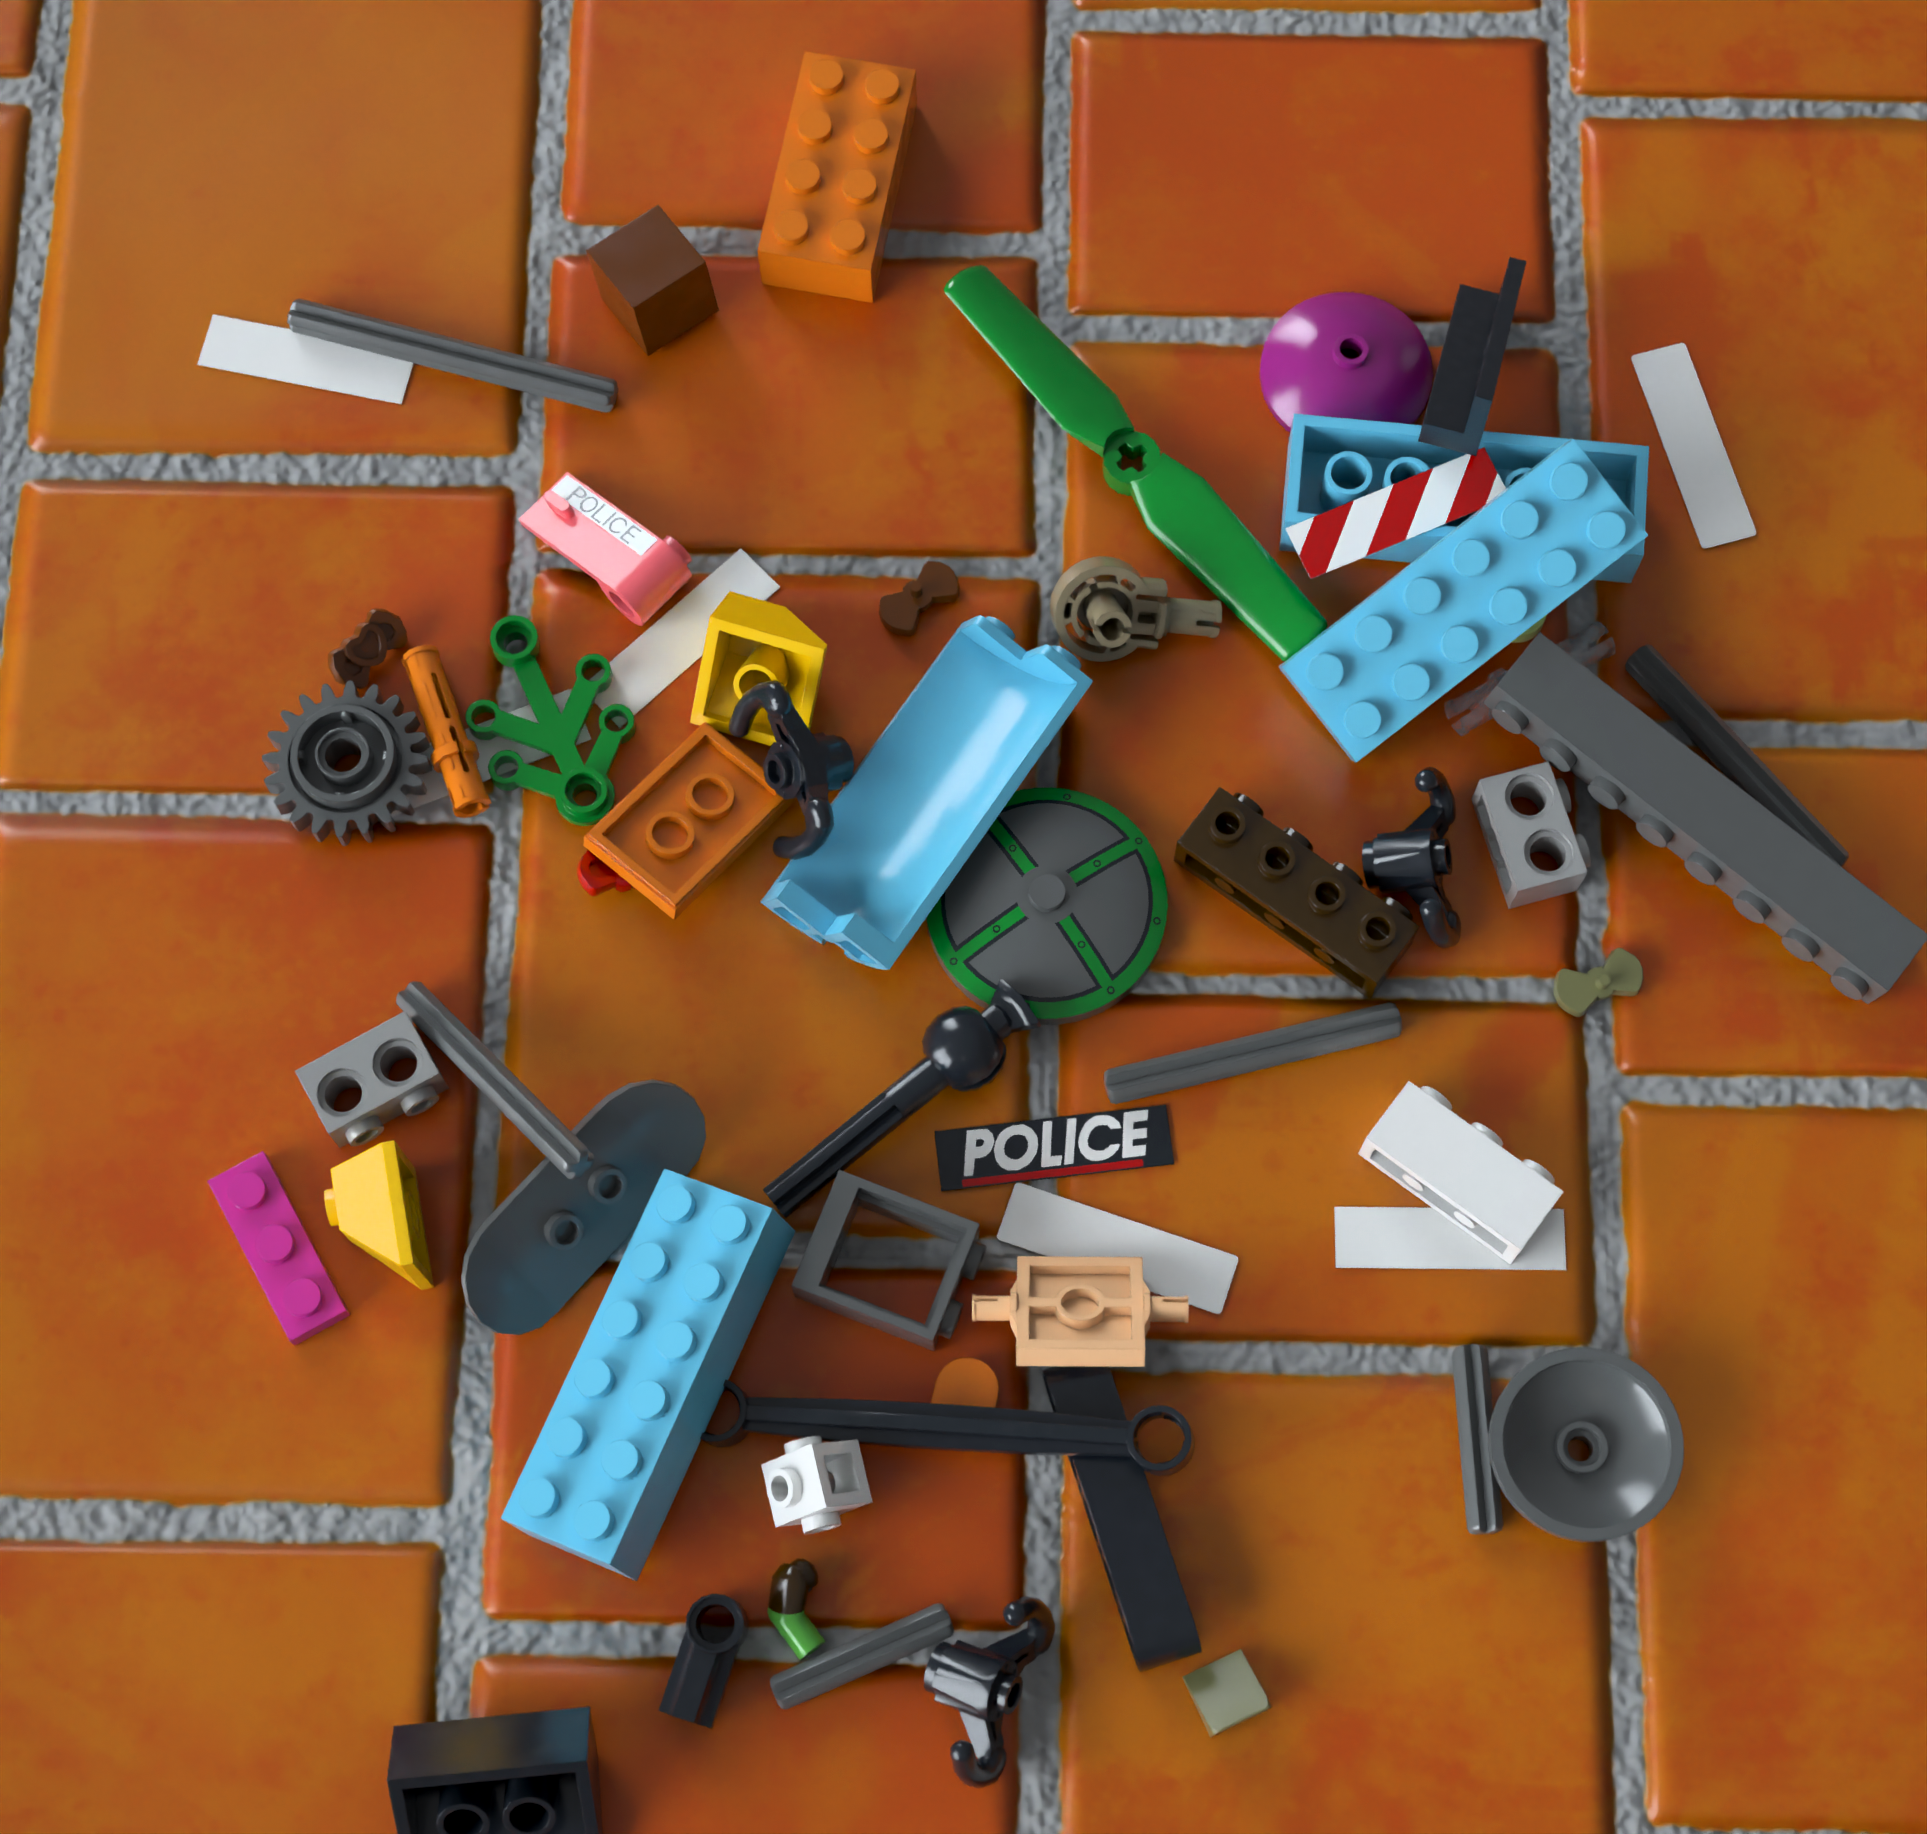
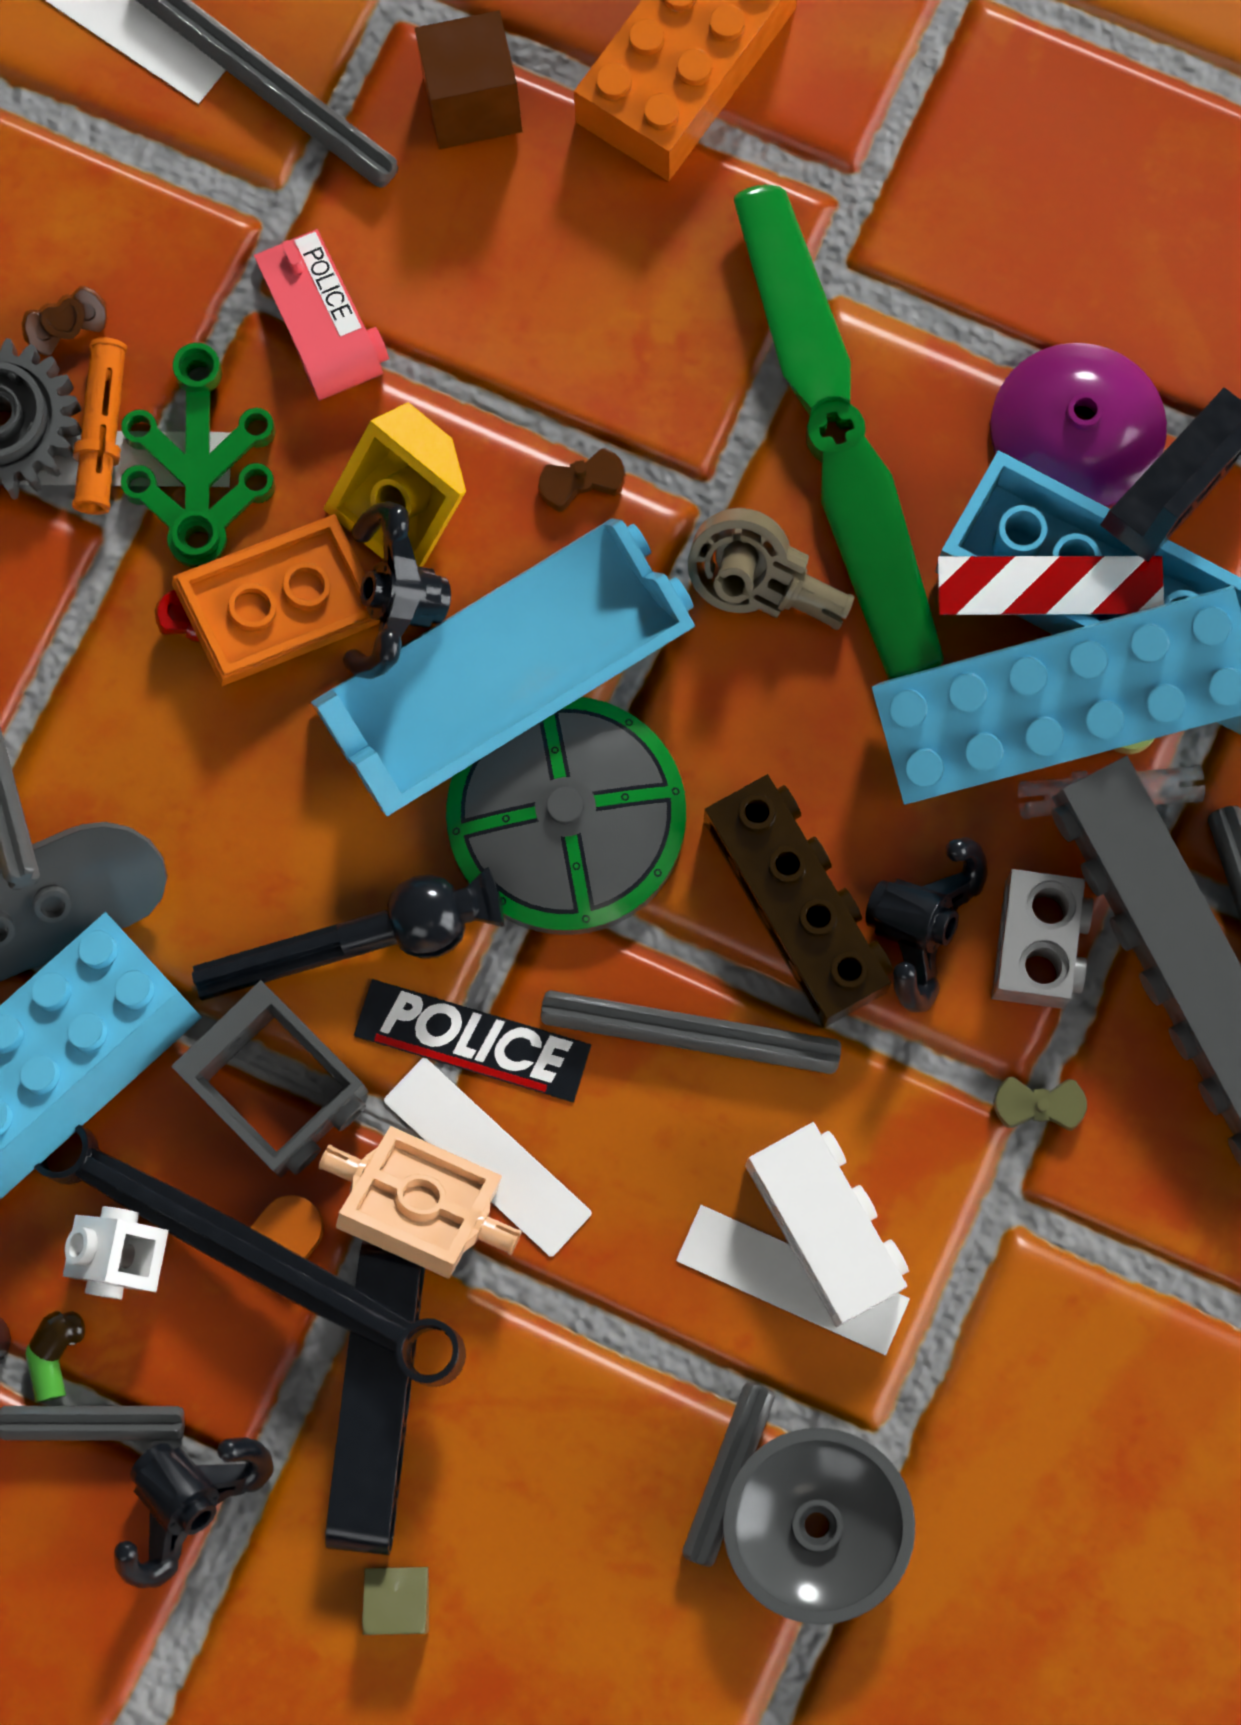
camera: 25 degrees right, 5 degrees up
(678, 636) = (337, 428): white sticker -> none

